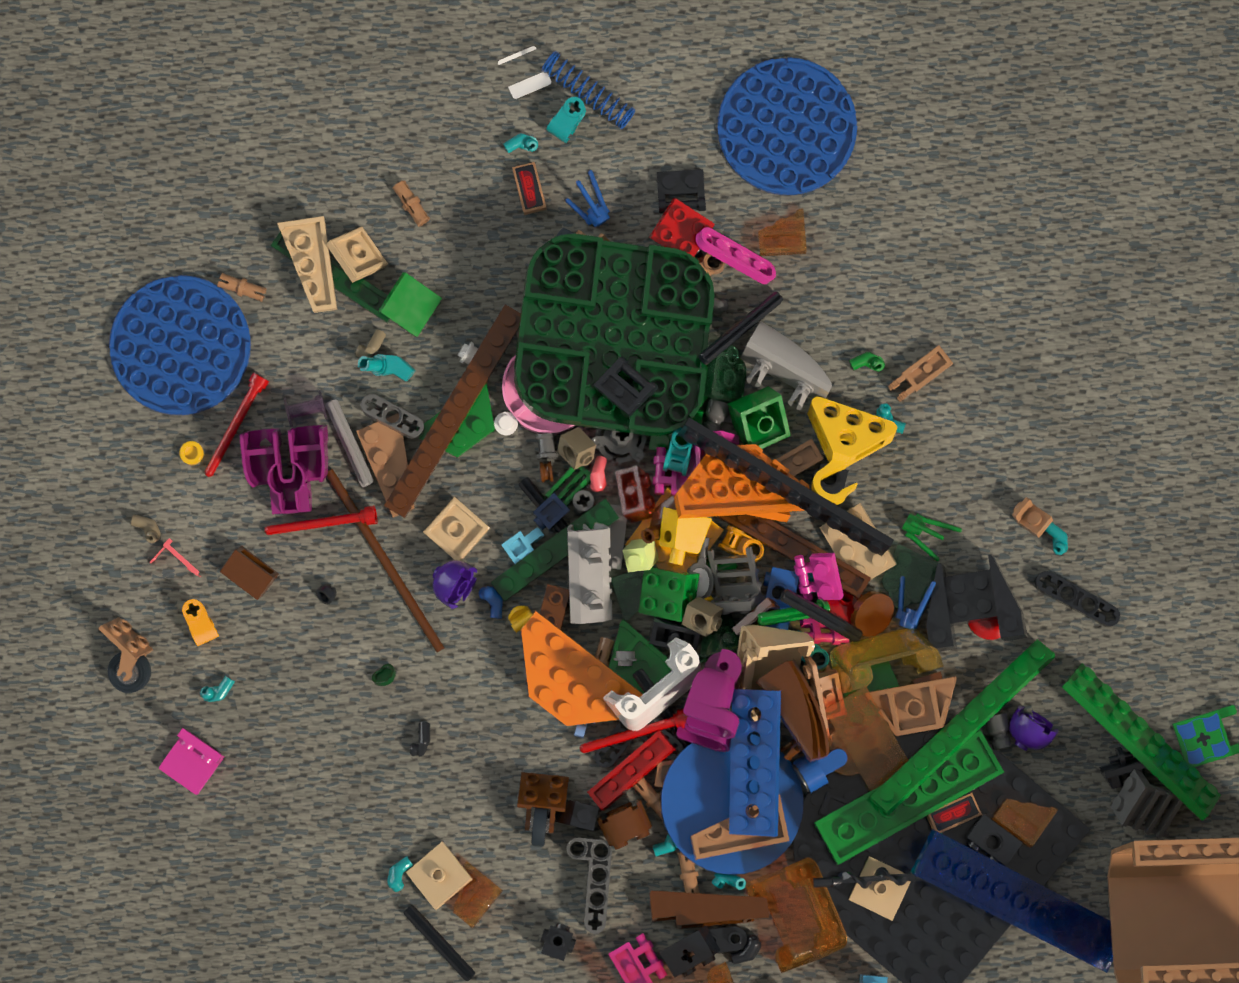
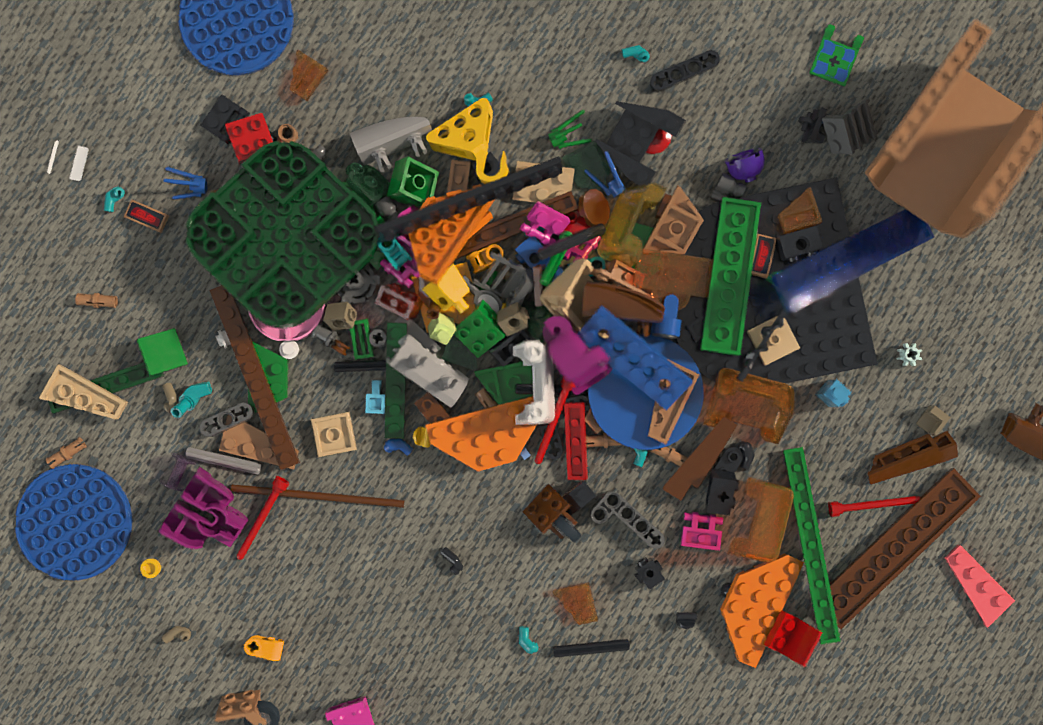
camera: 50 degrees left, 5 degrees up
(191, 568) = (212, 629): coral piece -> none
(217, 693) = (320, 669): teal arm -> none
(249, 572) = (257, 590): reddish brown brick -> none
(256, 385) = (138, 492): red piece -> none
(326, 593) = (310, 550): black hinge -> none
(357, 254) = (101, 361): tan plate -> none
(384, 676) = (392, 553): dark green piece -> none
(439, 875) = (548, 616): tan plate -> none
(453, 581) = (365, 462): dark purple cylinder -> none
(547, 67) = (146, 111): blue piece -> none
(550, 513) = (369, 365): dark blue bracket -> none
(564, 121) = (121, 158): teal piece -> none
(597, 475) = (369, 316): coral arm -> none
(622, 393) = (324, 258): black plate -> none
(624, 824) = (607, 471): reddish brown brick -> none
(625, 658) = (500, 389): light grey plate -> none
(733, 880) = (697, 428): teal arm -> none
(735, 255) = (293, 115): dark pink plate -> none
(740, 328) = (343, 149): black axle -> none
(868, 360) = (428, 84): green arm -> none
(922, 372) = (463, 55): medium nougat hinge -> none
(962, 727) = (712, 207): green plate -> none
(1031, 517) = (611, 58): medium nougat bracket -> none
(1142, 741) = (808, 99): green plate -> none

